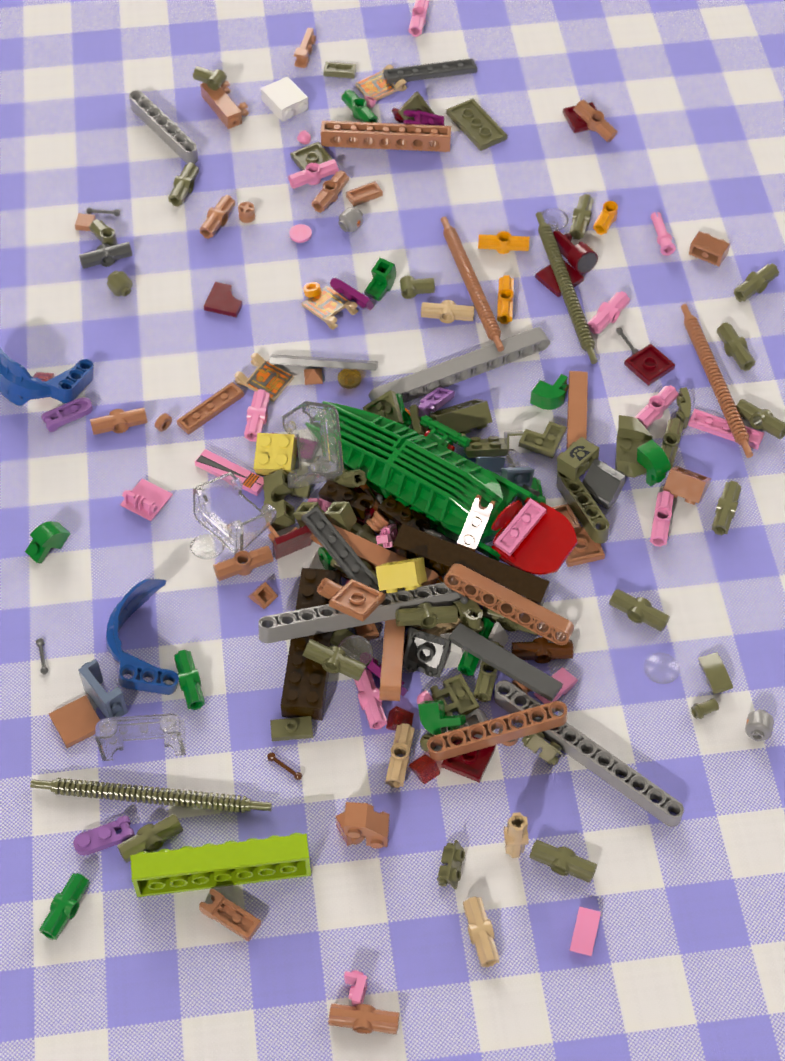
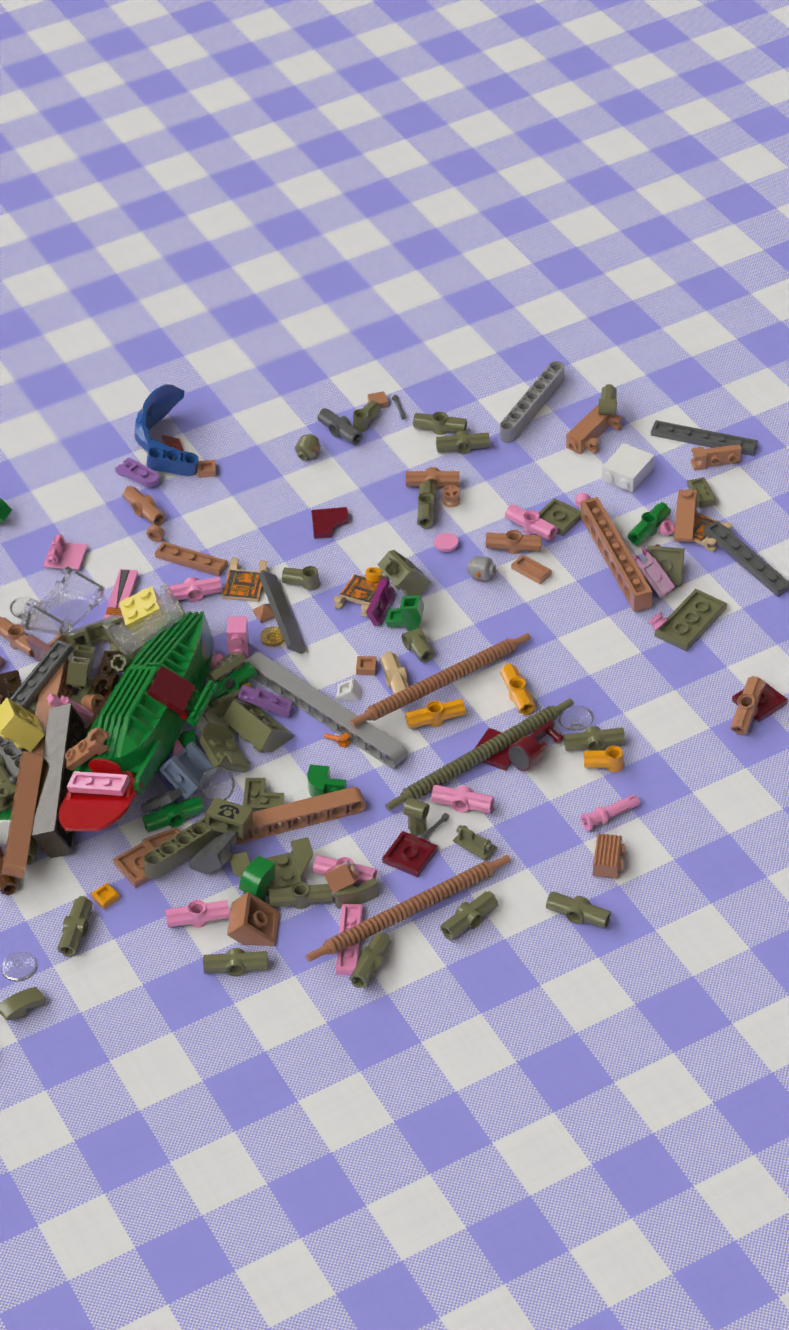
camera: 70 degrees right, 10 degrees down
(99, 362) = (206, 468): none -> nougat tile
(149, 190) = (439, 423): none -> olive piece
(248, 229) = (426, 504): none -> olive piece
(273, 49) = (702, 437): none -> dark grey tile
(288, 336) = (307, 577): none -> olive piece
(336, 265) = (403, 573): none -> olive hinge
(350, 393) = (238, 635): none -> bright pink brick
(365, 84) = (686, 515): none -> nougat slope
(419, 328) = (366, 665): none -> nougat tile
(435, 441) = (171, 690): none -> dark red tile
(443, 348) = (349, 691): none -> white slope
(473, 144) = (657, 621): none -> bright pink bush
(501, 368) = (342, 740): none -> orange hand
(607, 581) = (105, 896): none -> light orange tile
(623, 340) = (417, 813): none -> olive piece
(659, 320) = (474, 843): none -> olive hinge
(673, 405) = (341, 875): none -> nougat brick

